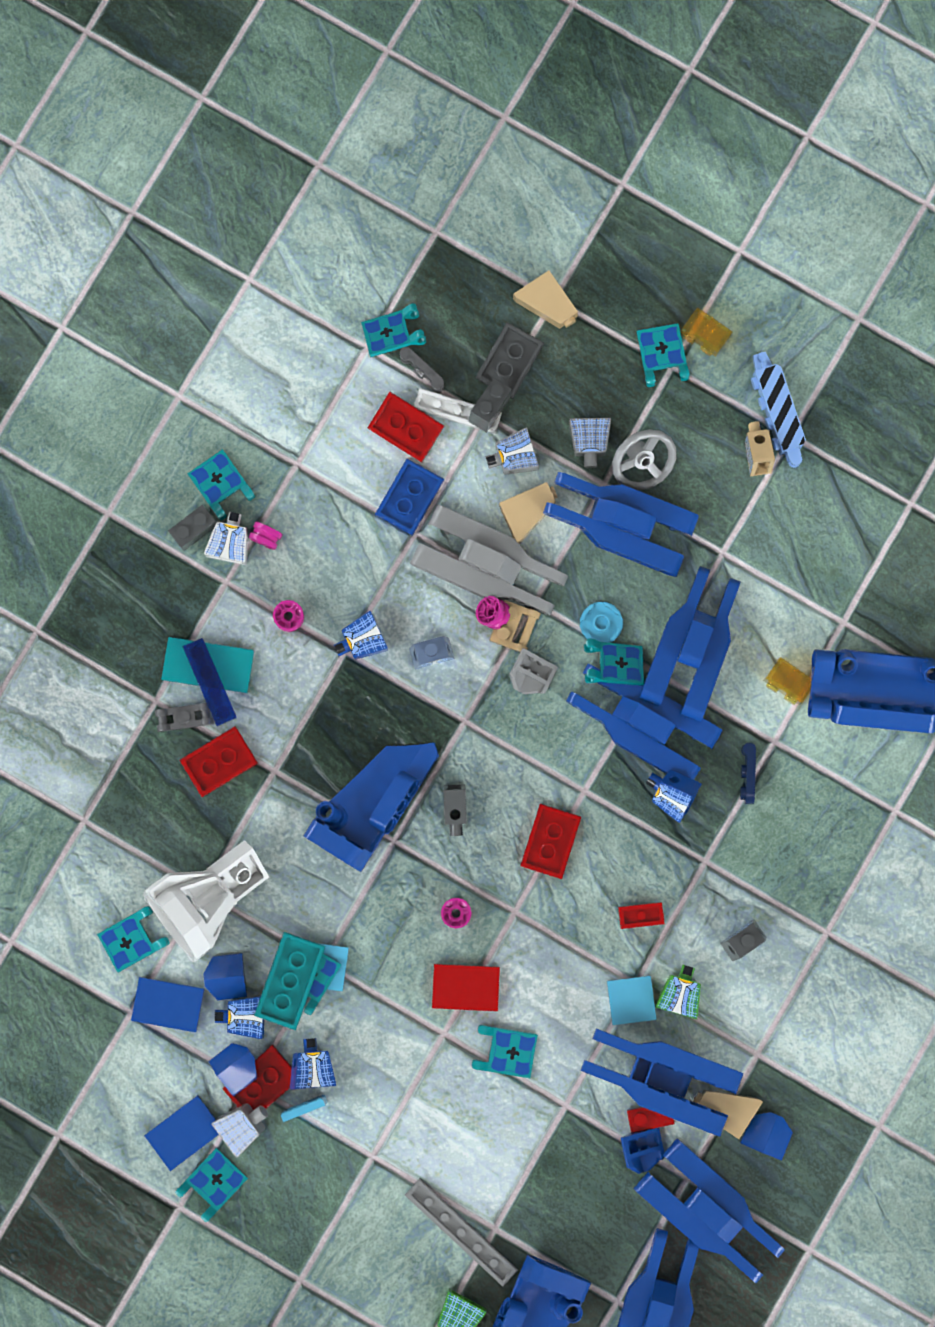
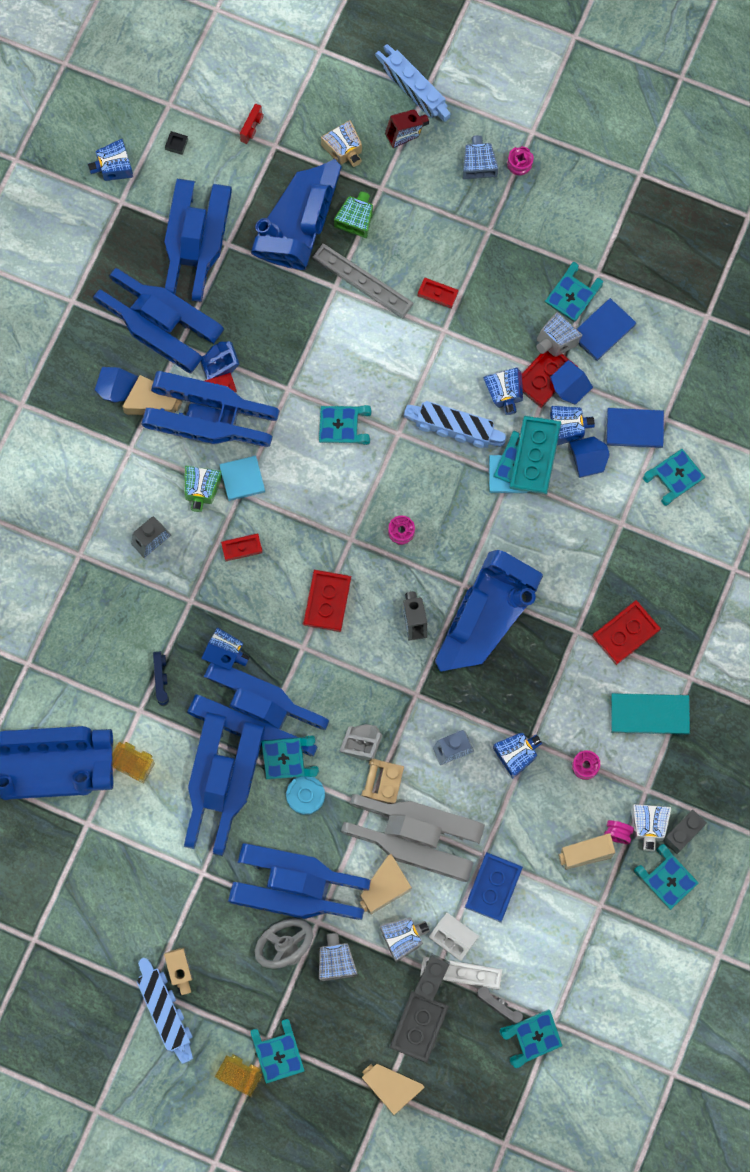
camera: 170 degrees right, 10 degrees down
(183, 717) = (663, 666): flat silver plate -> none
(209, 682) = (646, 696): clear blue plate -> none
(211, 892) = (613, 514): white plate -> none
(303, 518) = (587, 852): none -> tan slope
(303, 1108) = (507, 356): medium azure tile -> none
(373, 1203) = (438, 292): none -> red plate
(377, 1034) = (455, 424): none -> light blue hinge
(406, 426) = (506, 950): red tile -> none
(459, 448) = (453, 936): none -> white brick
(465, 987) = (384, 471): red tile -> none
(491, 605) = (408, 784): dark pink wheel -> none

